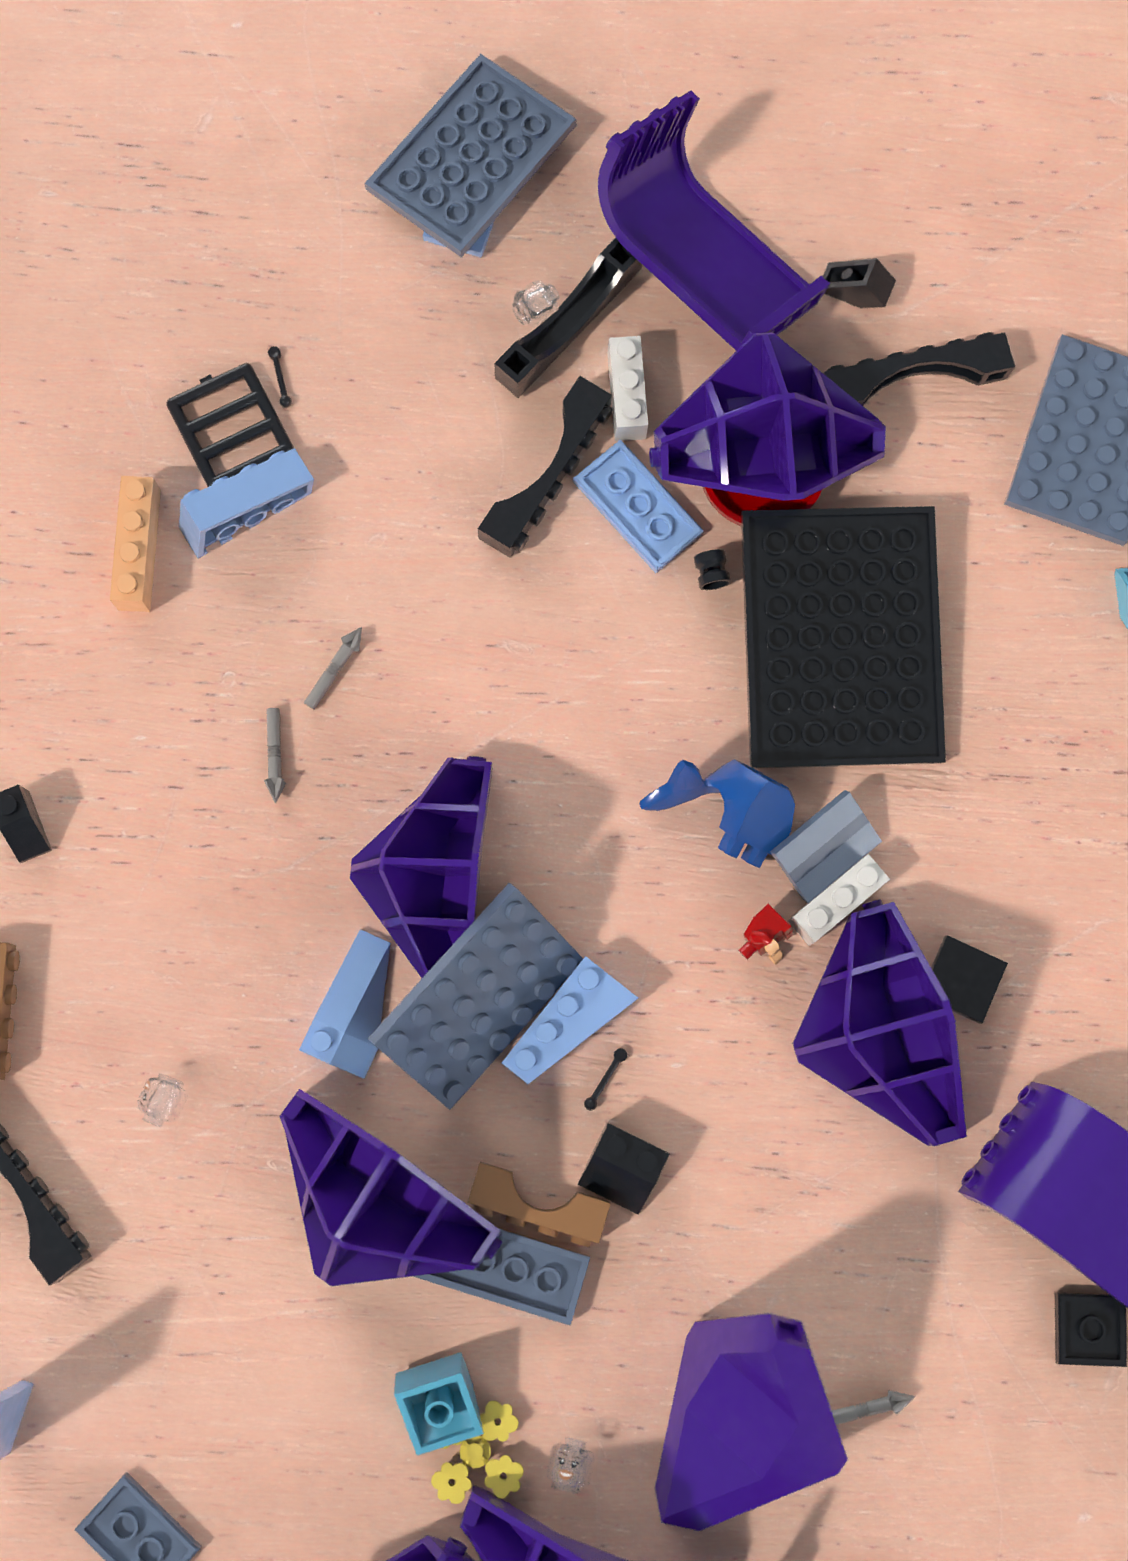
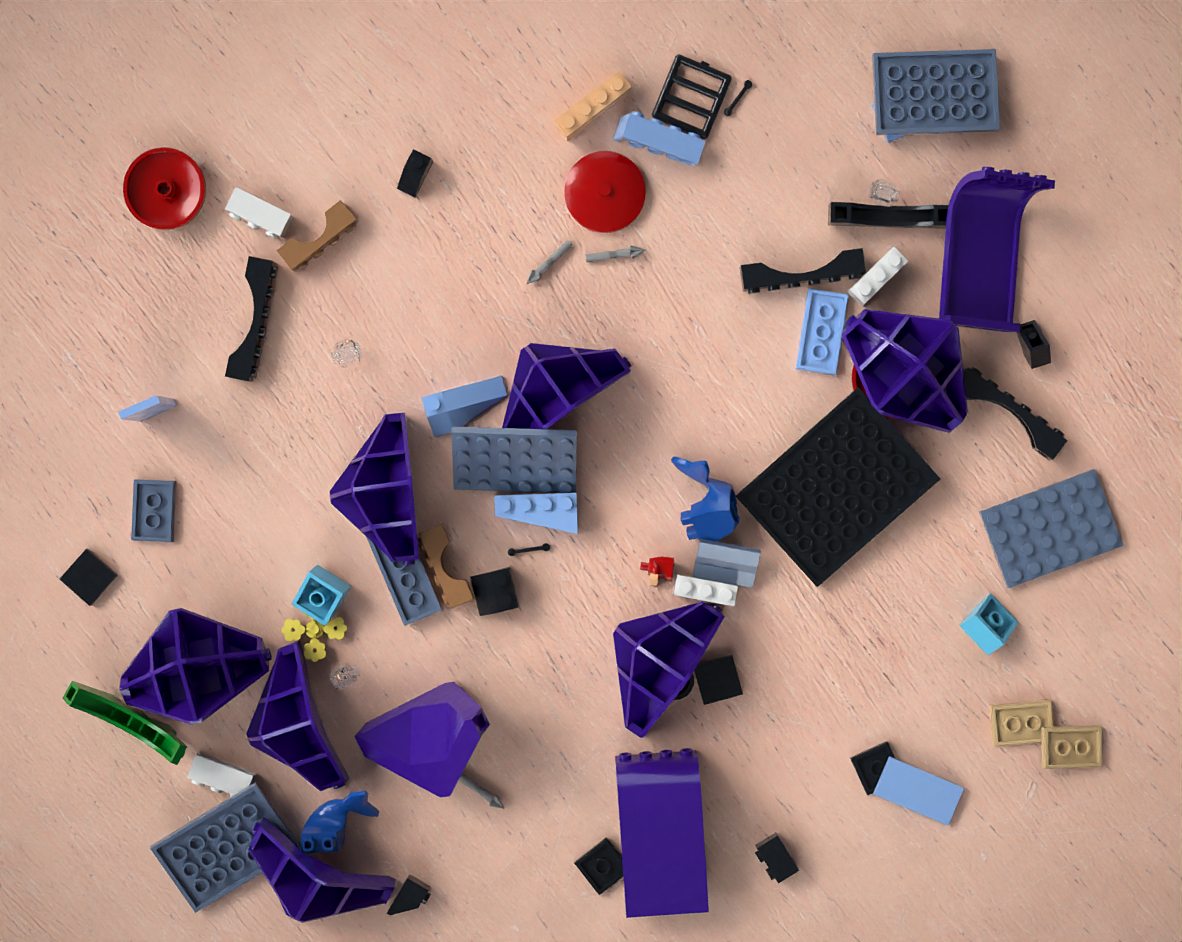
camera: 60 degrees right, 10 degrees up
(250, 617) = (604, 192): none -> red dish
(712, 569) = (821, 391): black wheel -> none

